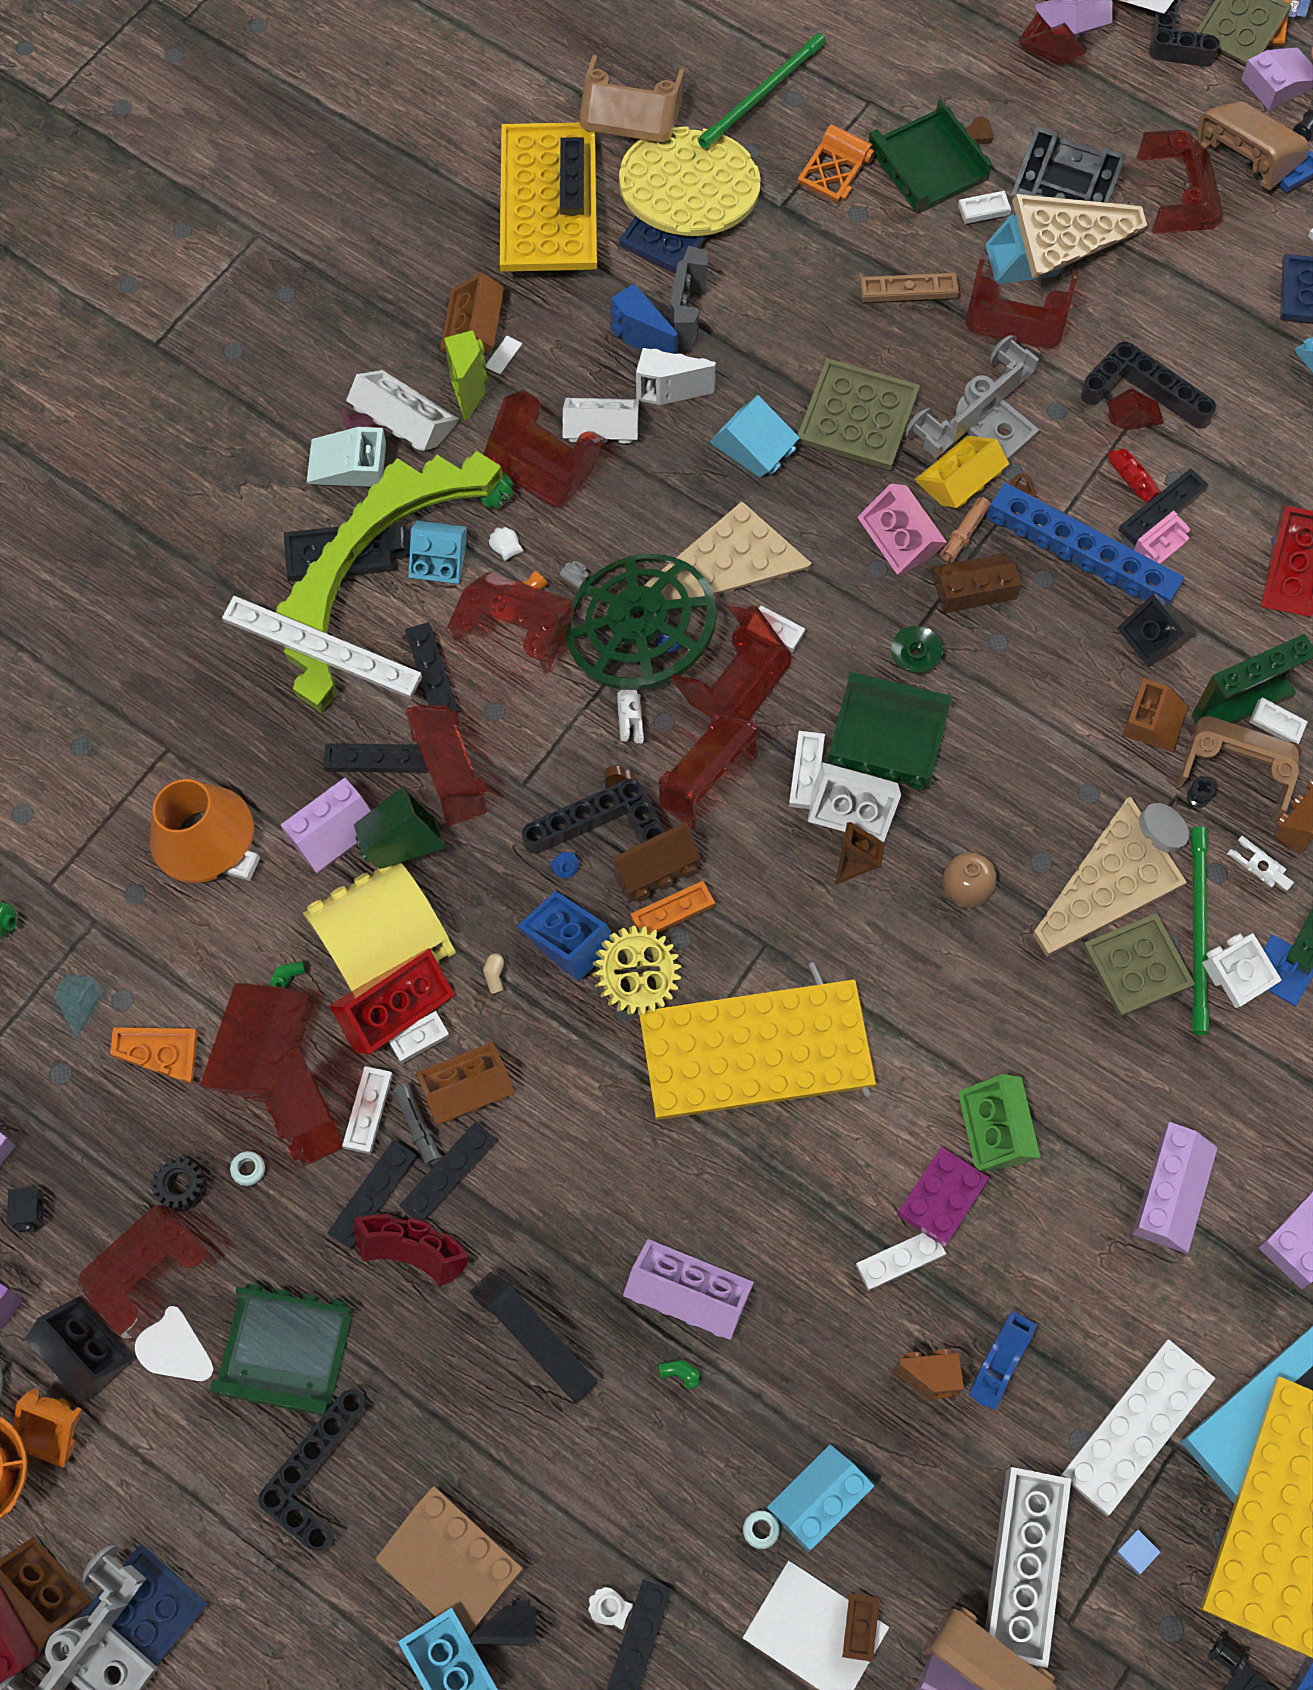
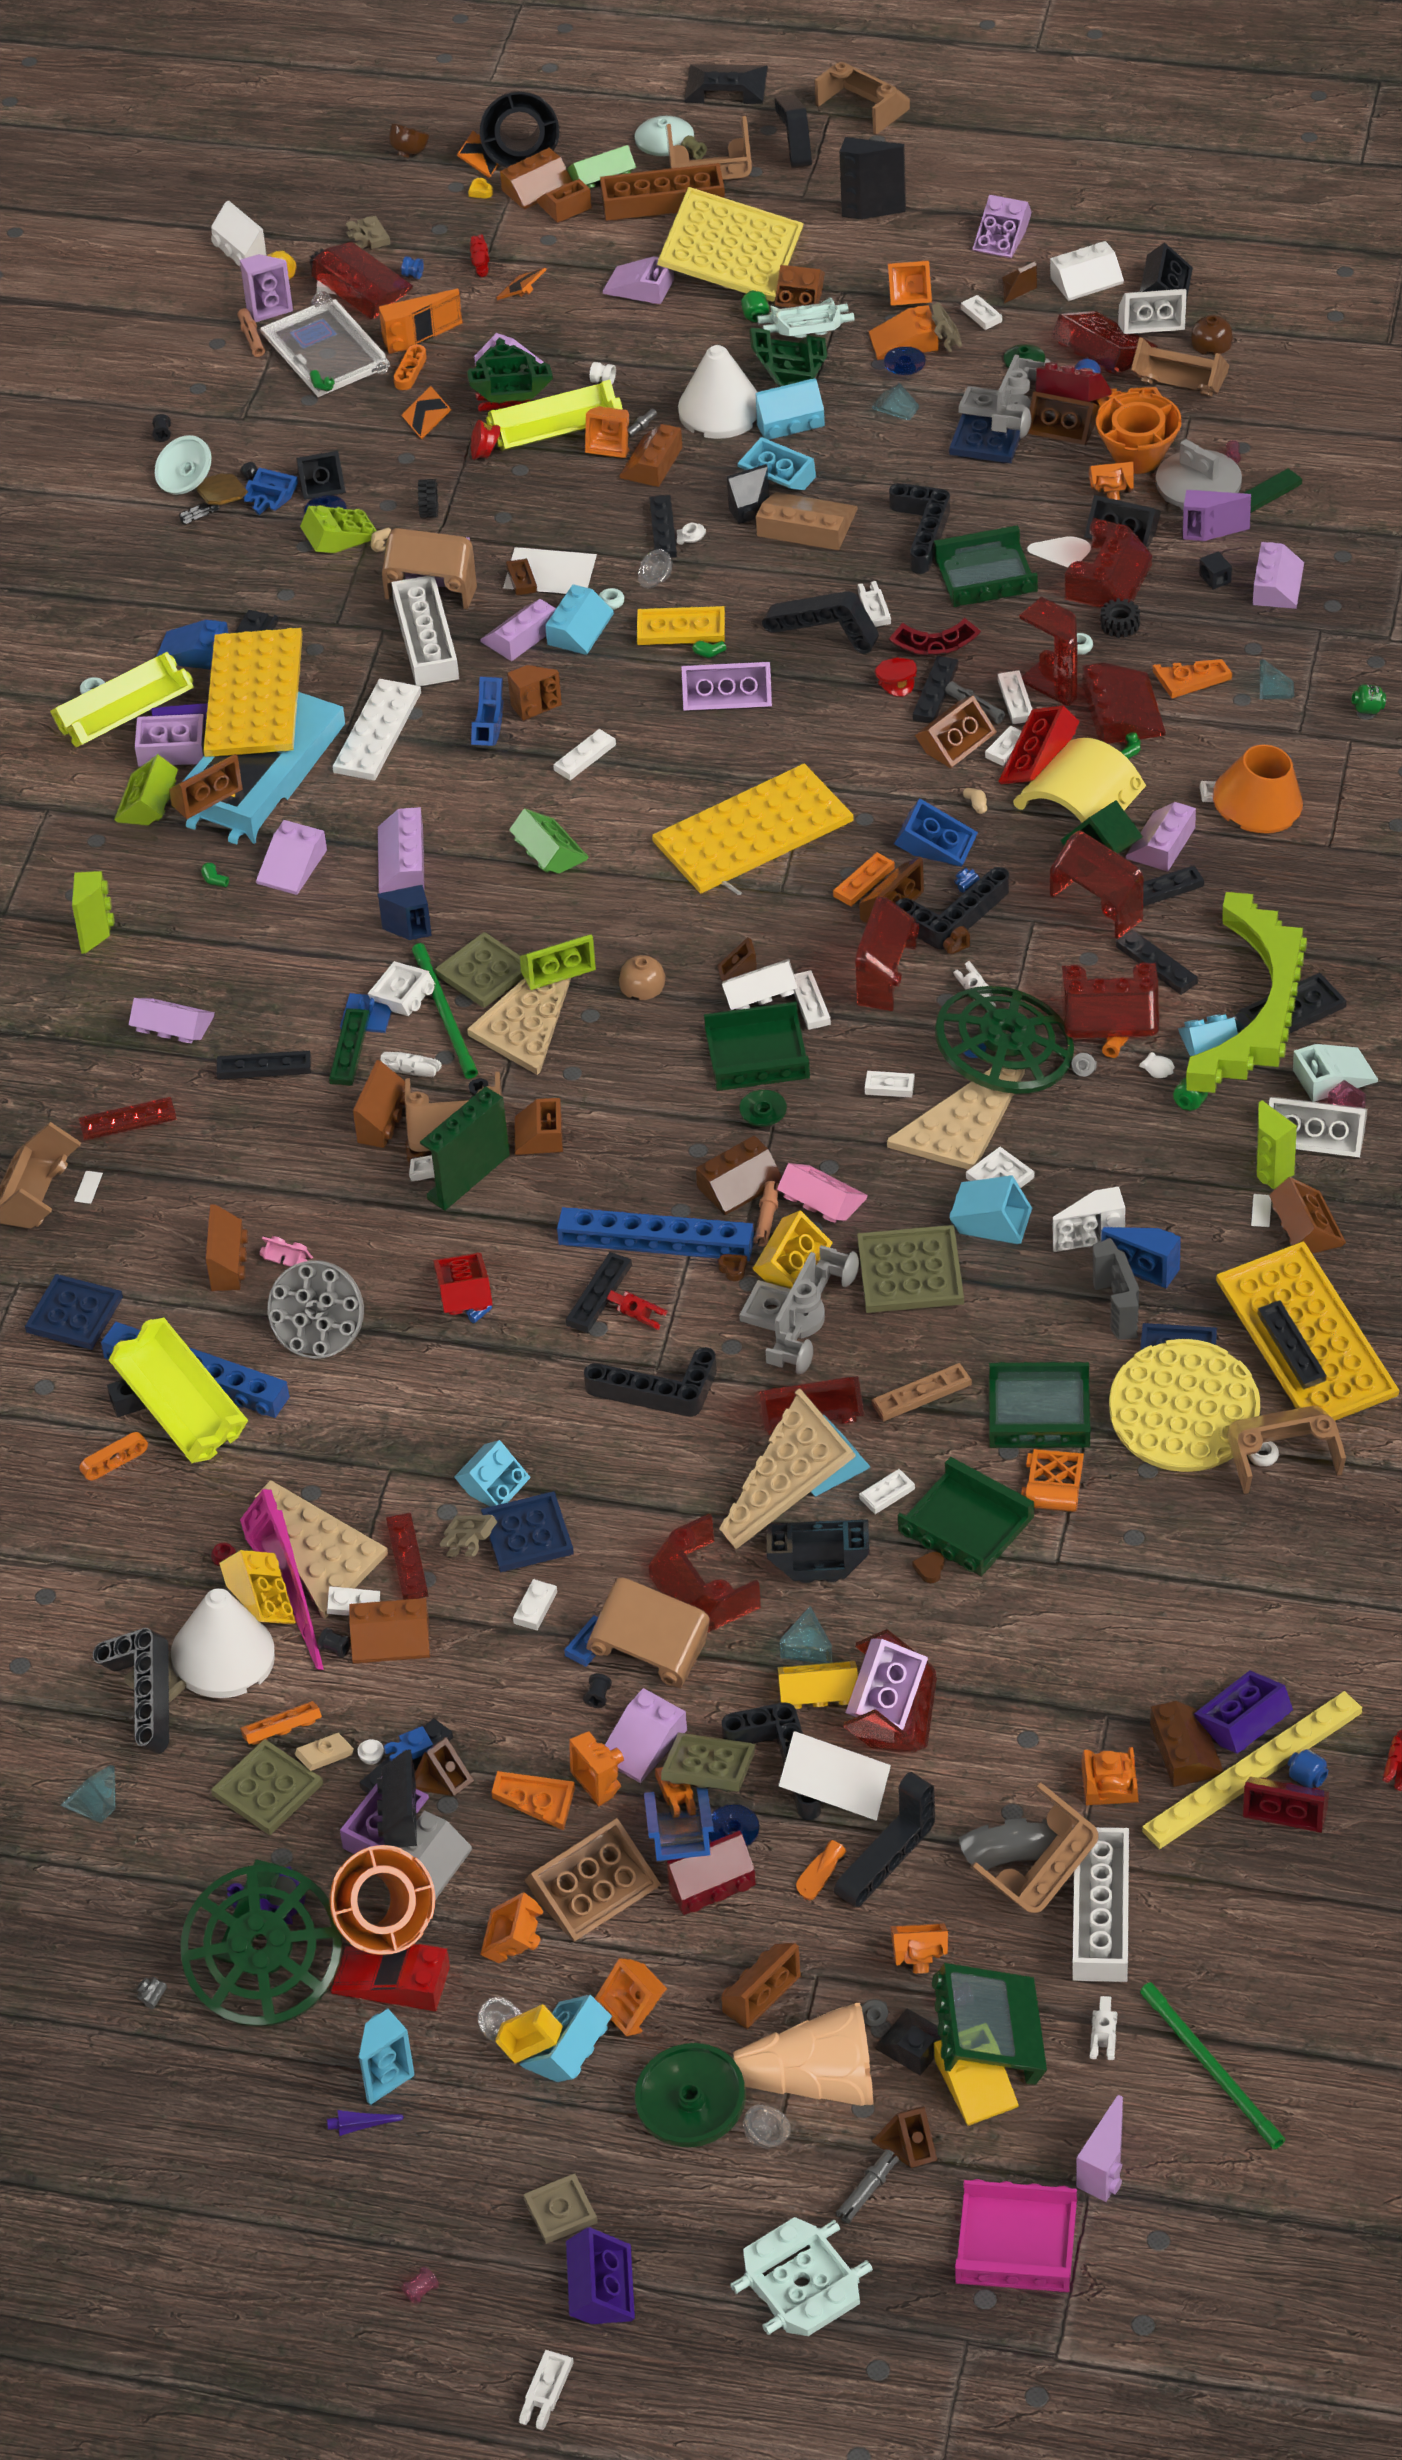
camera: 160 degrees right, 20 degrees down
(322, 647) = (1246, 914): white plate -> none
(373, 1192) = (982, 661): black plate -> none
(448, 1350) = (874, 604): none -> white hinge
(482, 1211) = (897, 676): none -> red hat
(537, 457) = (1167, 1129): clear red windscreen -> none
(603, 416) = (1141, 1179): white slope -> none
(639, 995) = (868, 828): light yellow gear -> none
(688, 1545) = (655, 568): none -> clear piece
(697, 1429) = (680, 625): none -> yellow plate
(715, 132) = (1145, 1581): green piece -> none
(719, 490) = (1000, 1164): none -> white plate
(749, 676) = (899, 1027): clear red windscreen -> none
(814, 232) = (1039, 1405): none -> panel
(901, 1524) = (520, 630): none -> lavender slope
(942, 1196) = (571, 791): magenta plate -> none
(1063, 911) = (558, 962): none -> lime slope
(1116, 96) = (806, 1641): none -> clear light blue slope
(1119, 64) = (817, 1683): none -> yellow slope
(1134, 411) = (659, 1355): clear red slope -> none
(1138, 1552) = (352, 672): light blue tile -> none
(1156, 630) = (559, 1191): black slope -> none
(1163, 538) = (588, 1264): bright pink hinge -> none
(1164, 827) = (500, 1054): light grey tile -> none
(1205, 1069) = (405, 912): none -> dark blue slope

